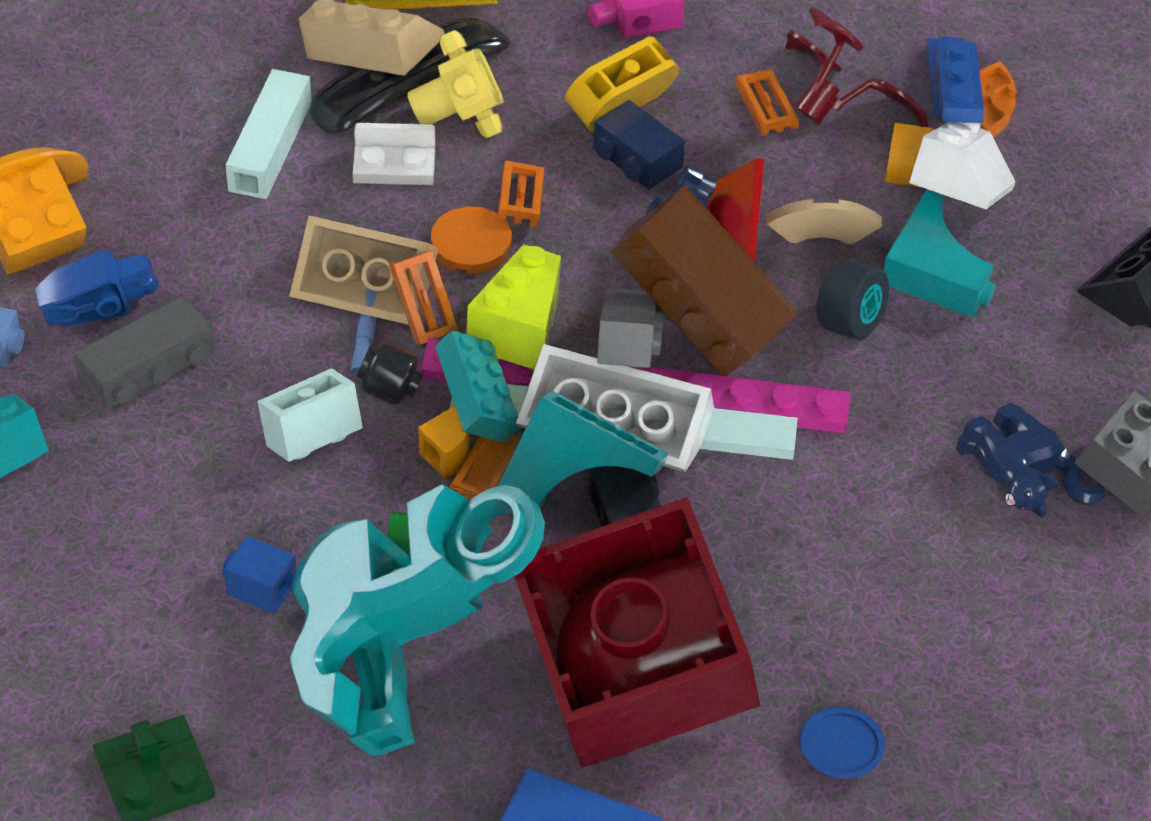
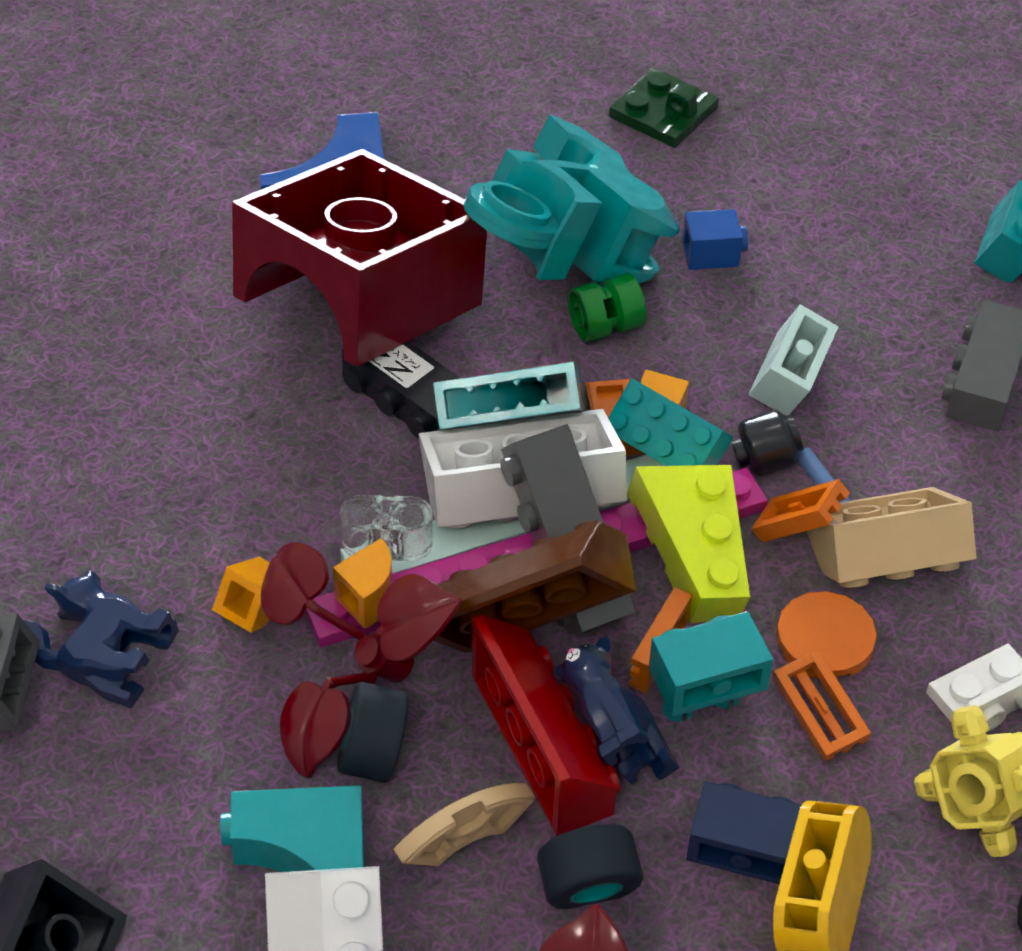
camera: 150 degrees right, 0 degrees up
(591, 279) = (672, 615): none -> orange tile
(595, 204) = (709, 665): none -> teal brick
(755, 424) = (399, 520): none -> clear beam
(767, 142) = (589, 866): none -> black wheel
(800, 379) = (363, 581): none -> light orange brick
(842, 742) = (153, 318): blue piece -> none
(863, 377) = (410, 615): none -> dark red plant
(881, 445) = (241, 594): none -> light orange brick

